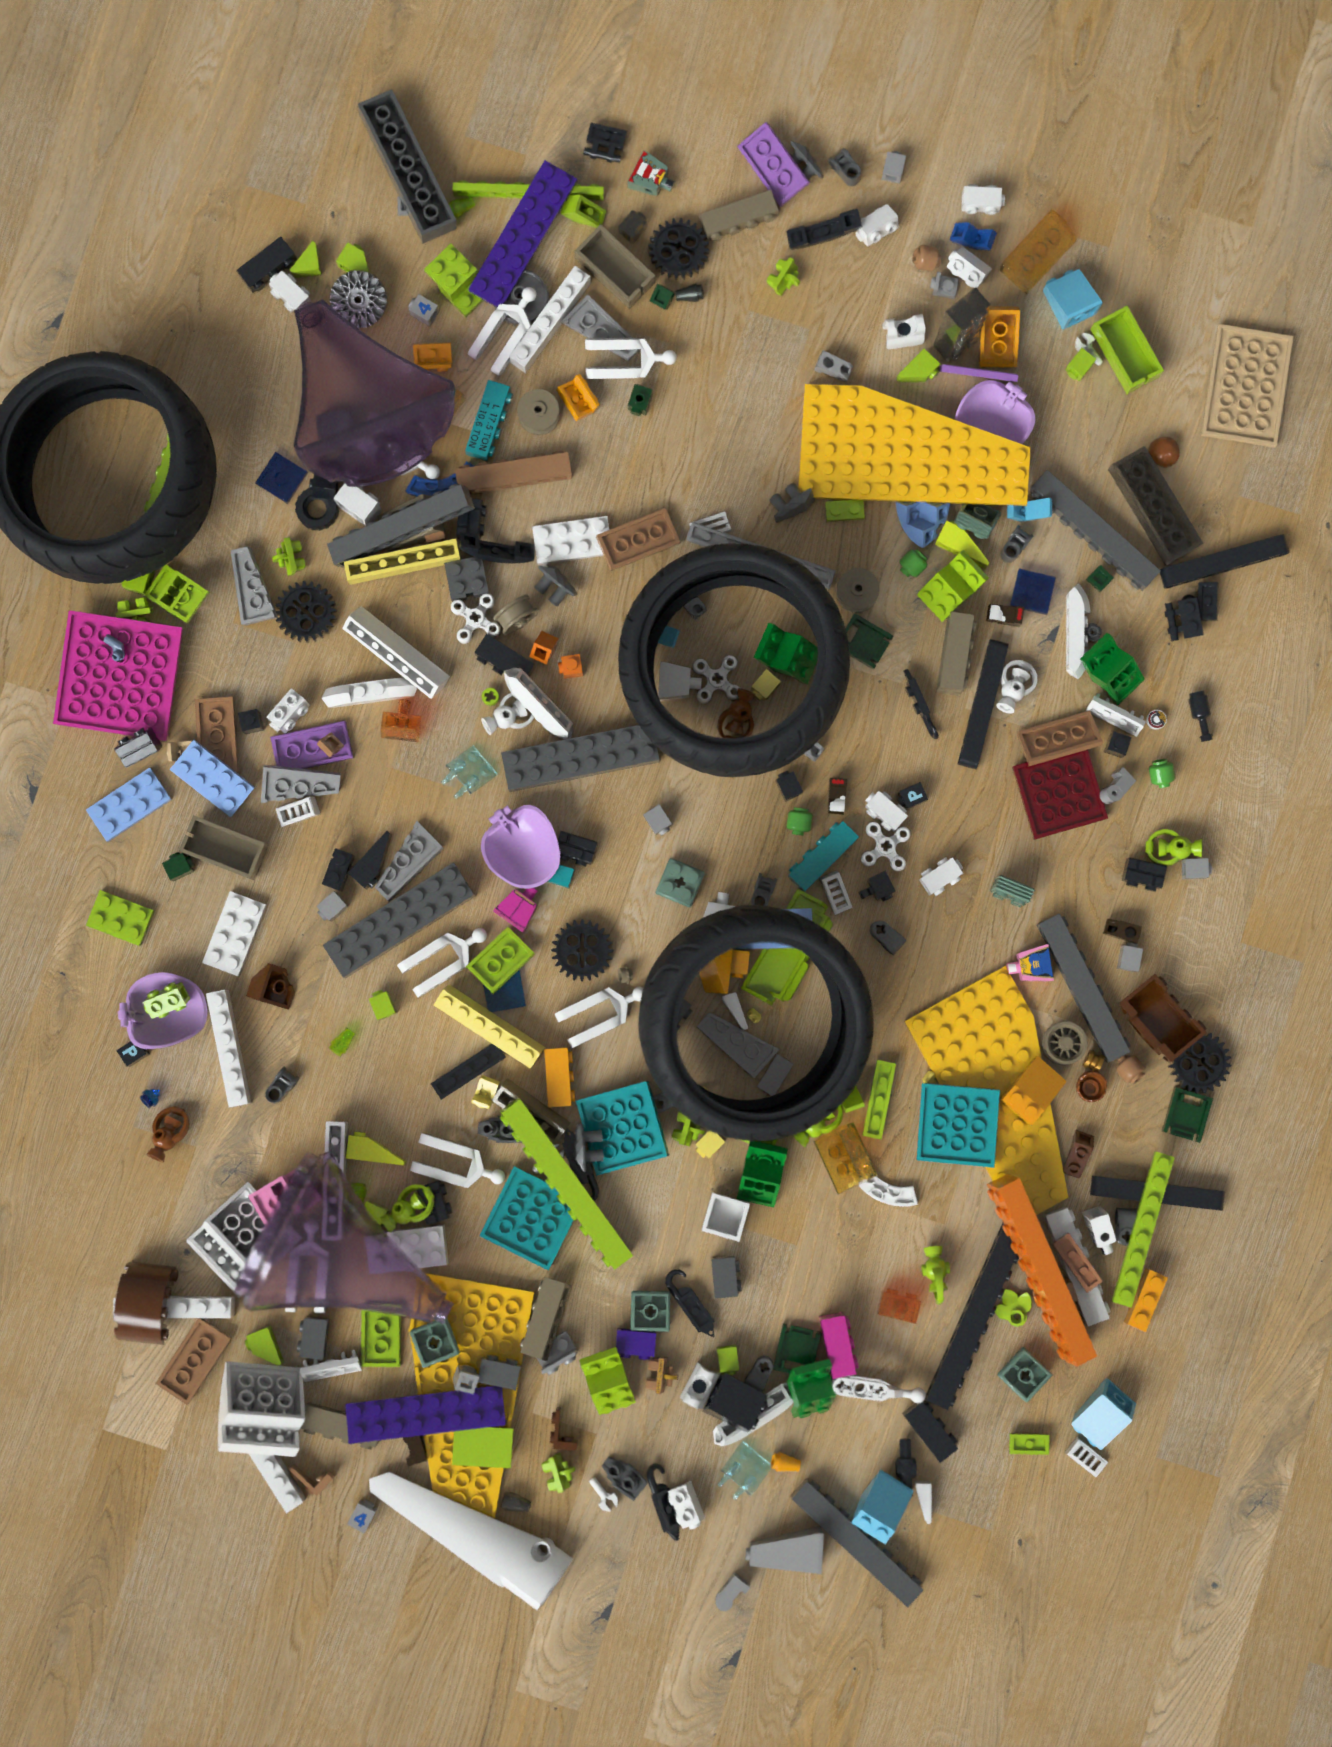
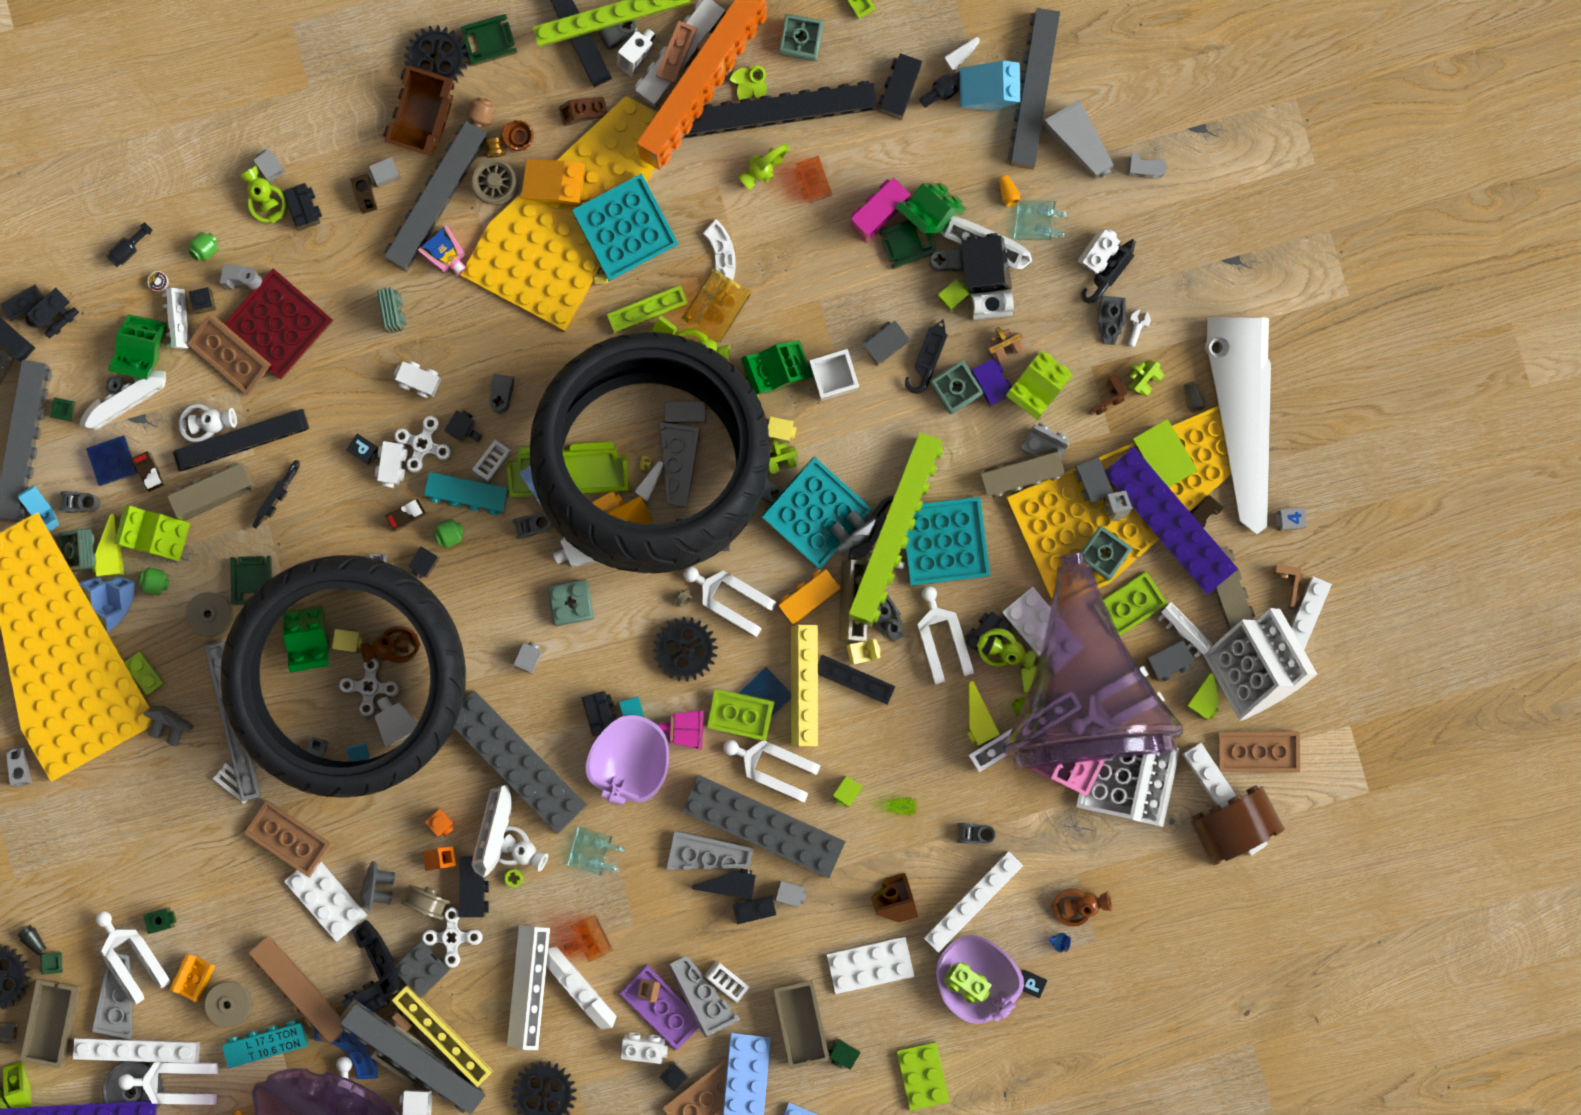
camera: 125 degrees left, 0 degrees up
(917, 1394) = (891, 142): white piece -> none

